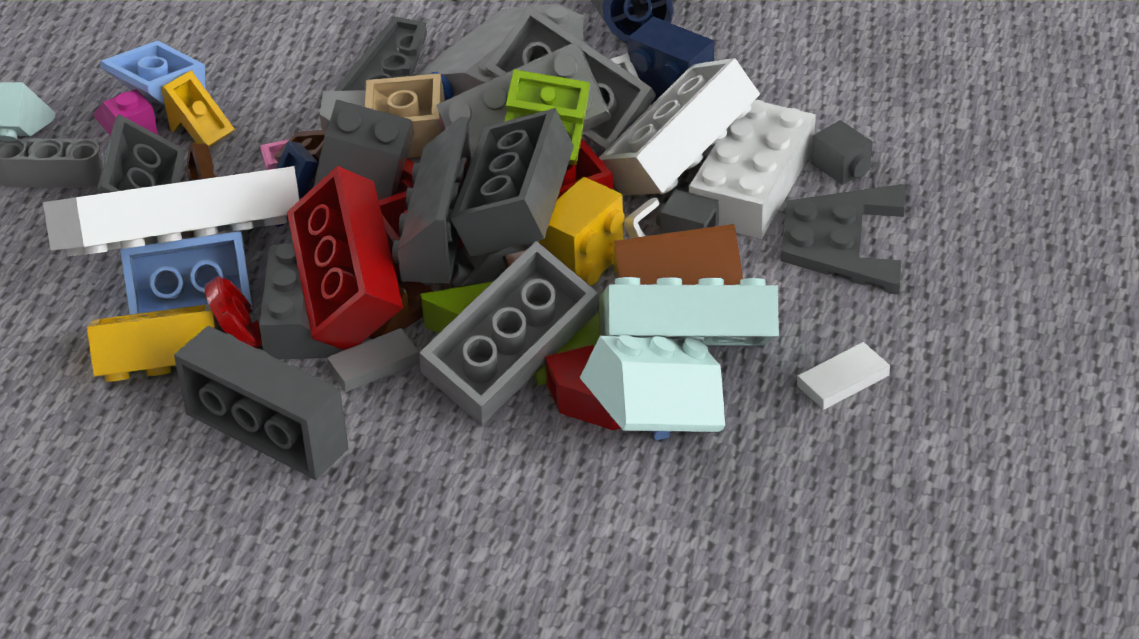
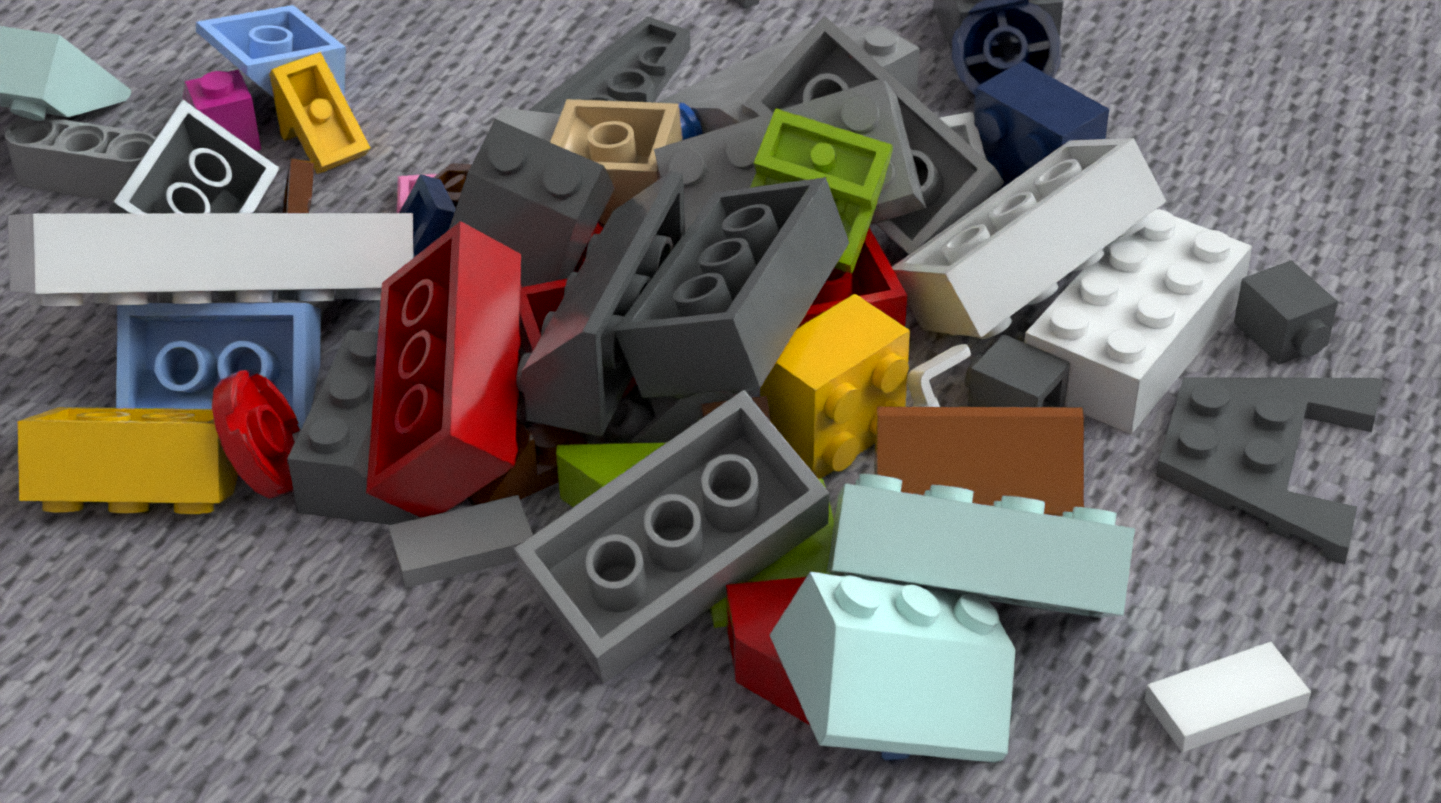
camera: 10 degrees right, 0 degrees up
(262, 401) = (253, 589): dark grey brick -> none

